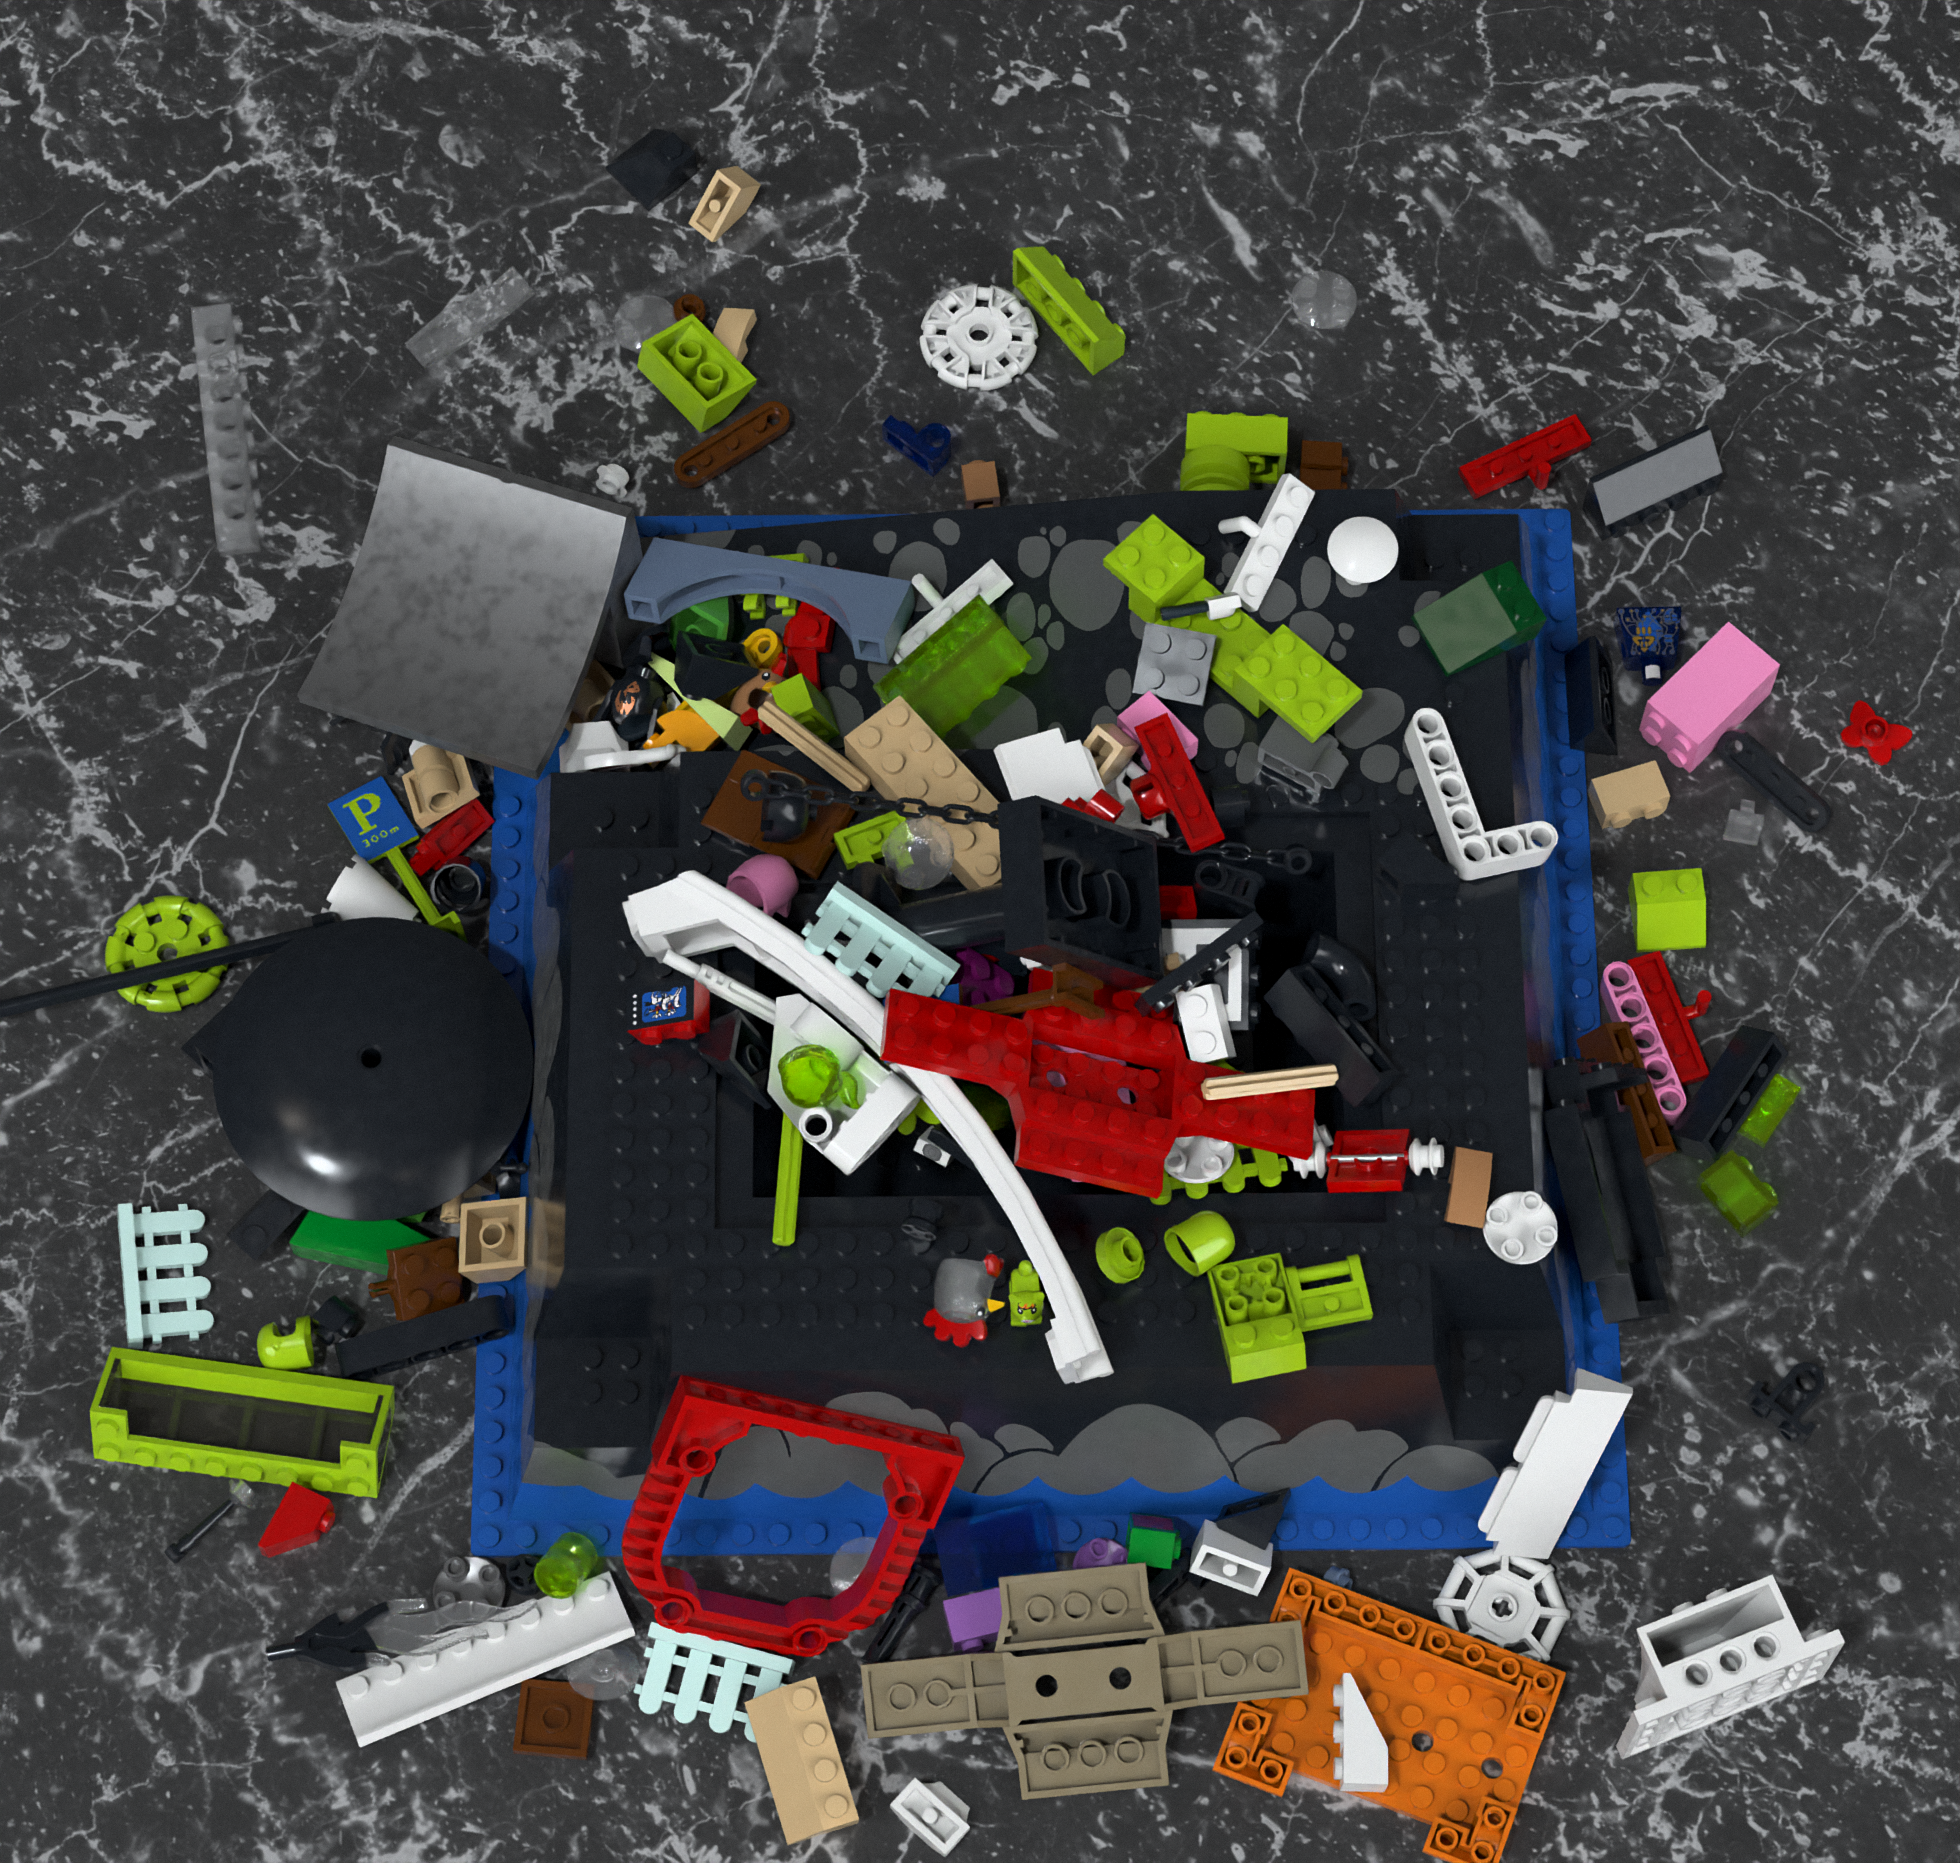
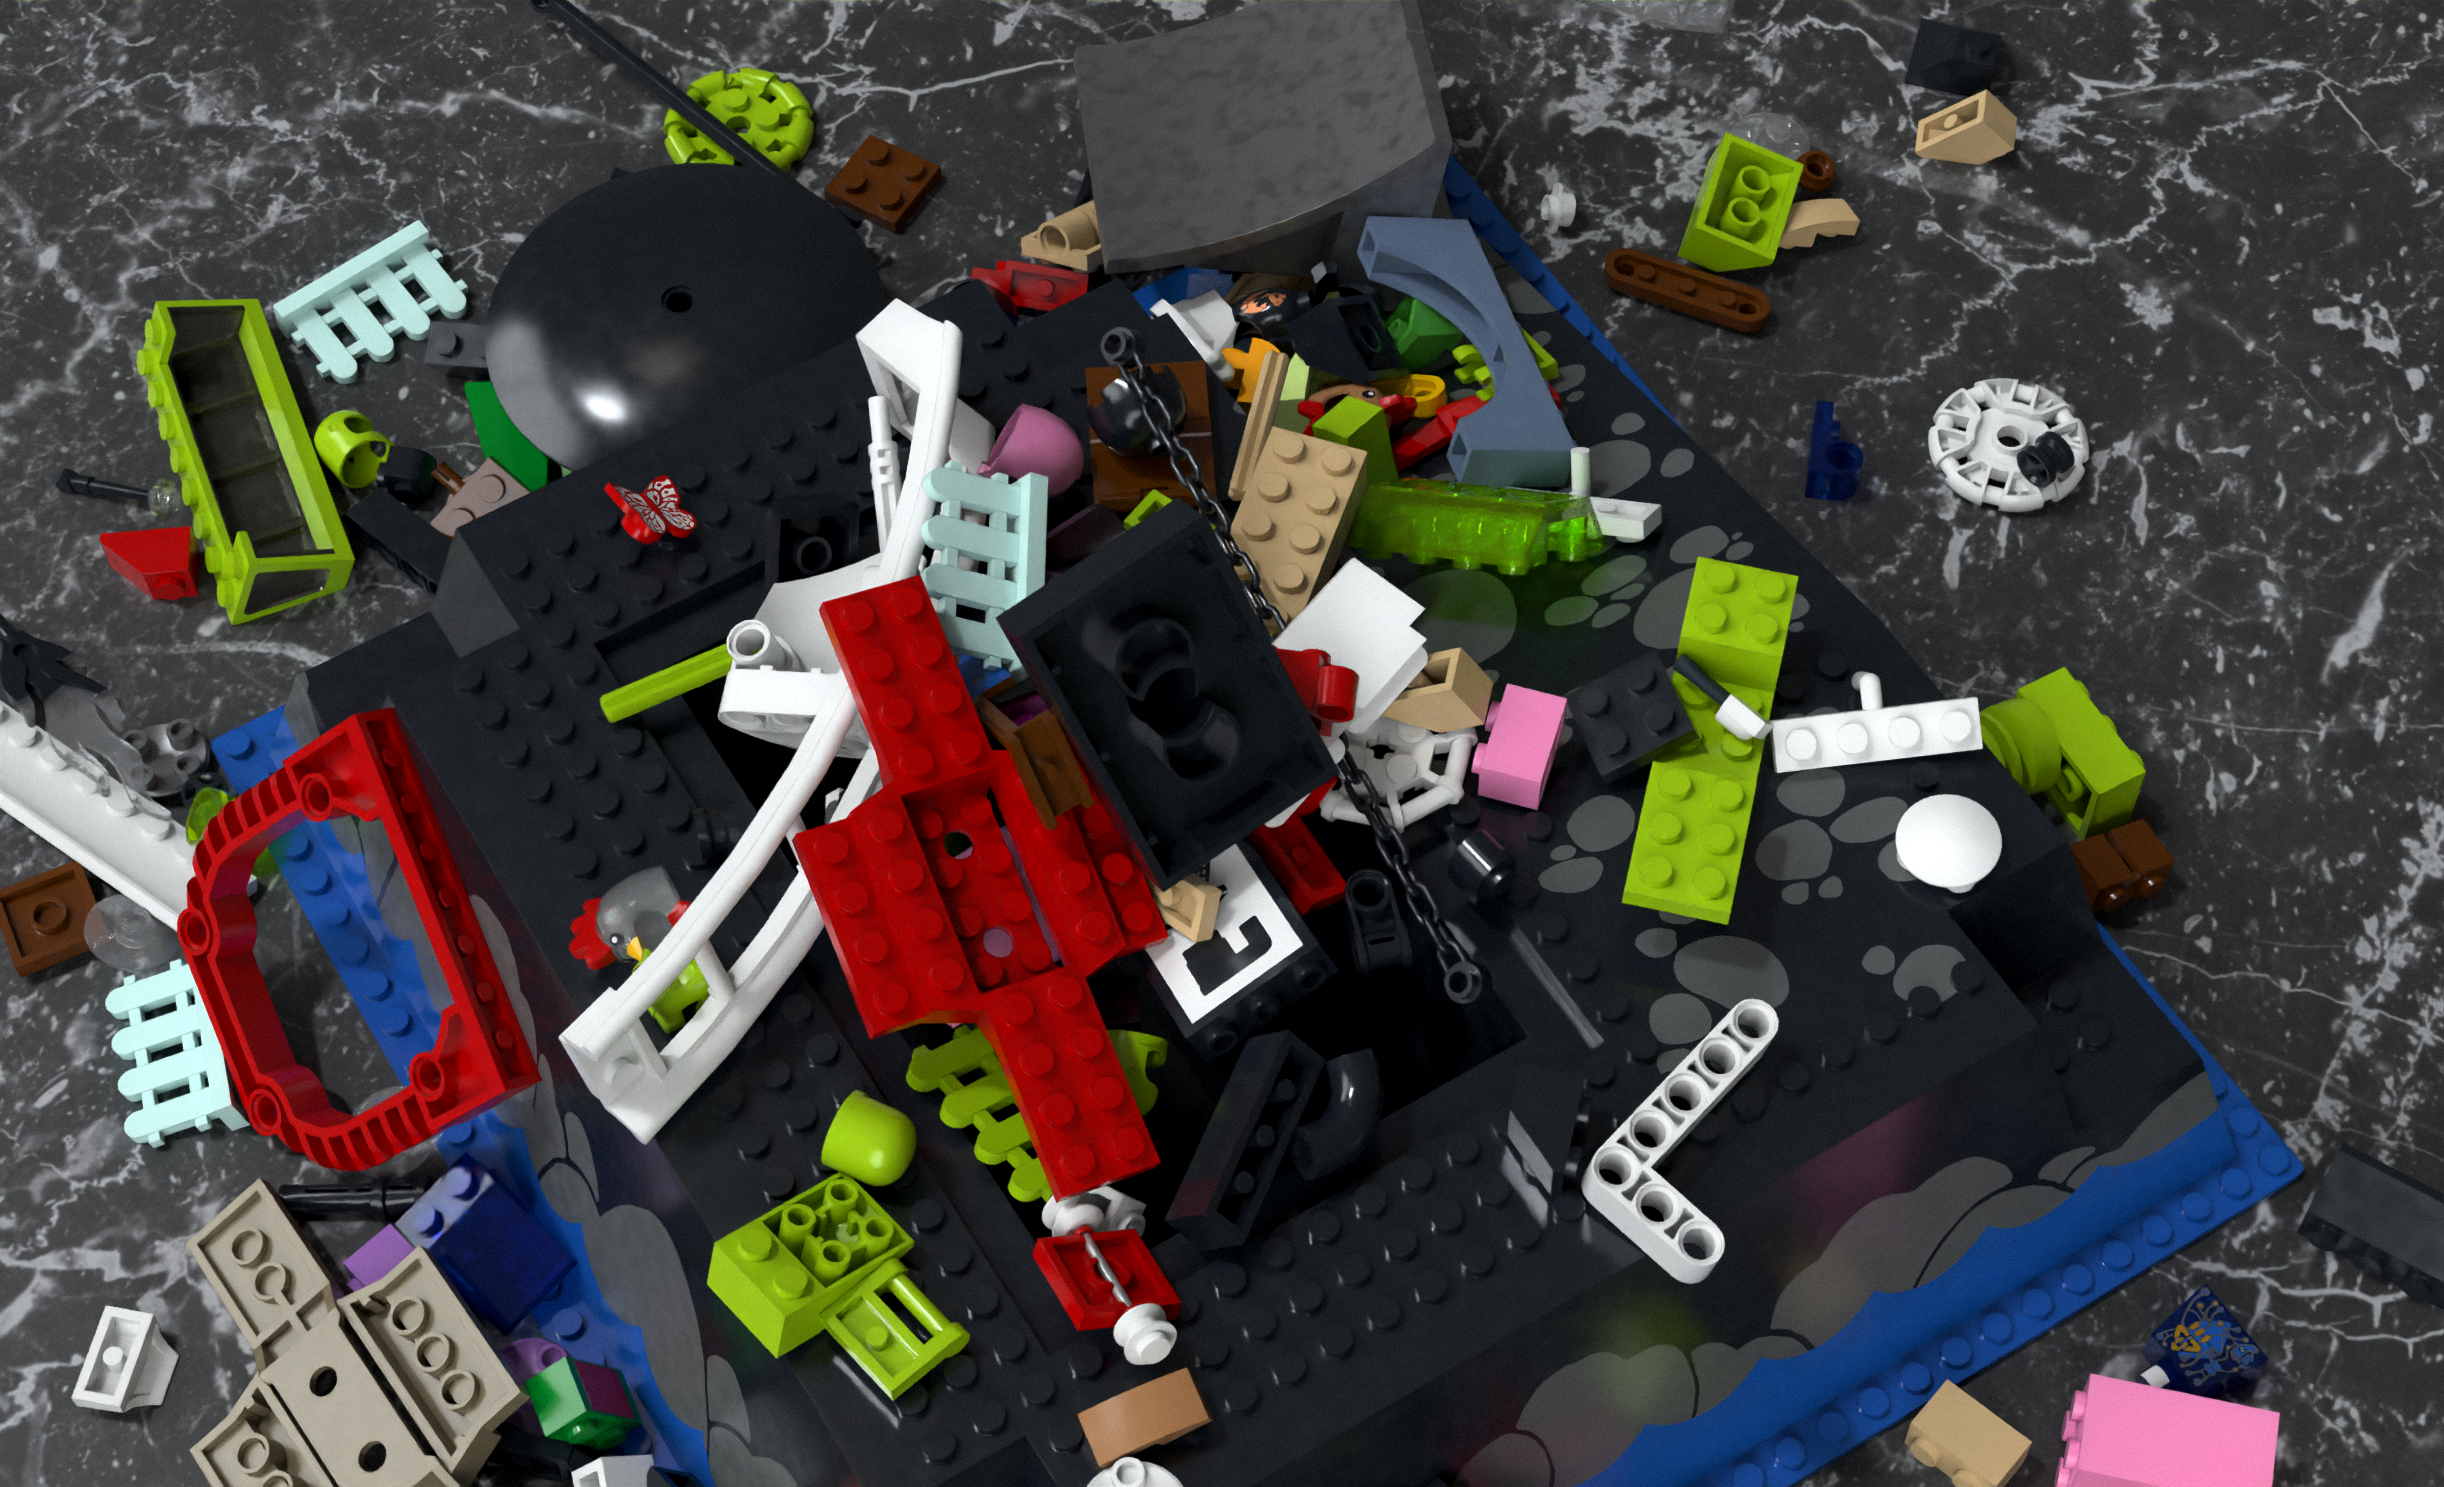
camera: 60 degrees right, 10 degrees down
(284, 886) = (883, 183): none -> reddish brown plate
(367, 894) = (905, 245): white cone -> none
(378, 830) = (995, 225): piece -> none
(650, 1138) = (652, 511): none -> red animal
(668, 1011) = (815, 443): brick -> none
(801, 1761) = (121, 1191): tan slope -> none
(815, 1078) = (798, 616): clear neon green hair -> none
(980, 484) = (1826, 534): medium nougat brick -> none
(1018, 324) = (2045, 459): none -> black wheel
(1067, 308) = (2114, 501): lime slope -> none
(1120, 1255) = (796, 1060): lime plate -> none
(1173, 785) = (1449, 778): red plate -> none
(1188, 974) = (1226, 917): black plate -> none
(1199, 1159) = (981, 1087): white dish -> none
(1205, 1024) = (1154, 981): white brick -> none
(1269, 1081) = (1118, 1088): tan axle -> none
(1298, 759) = (1611, 931): dark grey hinge -> none
(1324, 300) = (2352, 757): clear dish -> none
(1480, 619) = (1954, 1018): dark green slope -> none
(1525, 457) = (2331, 1080): red plate -> none
(1590, 699) = (2065, 1331): black slope -> none

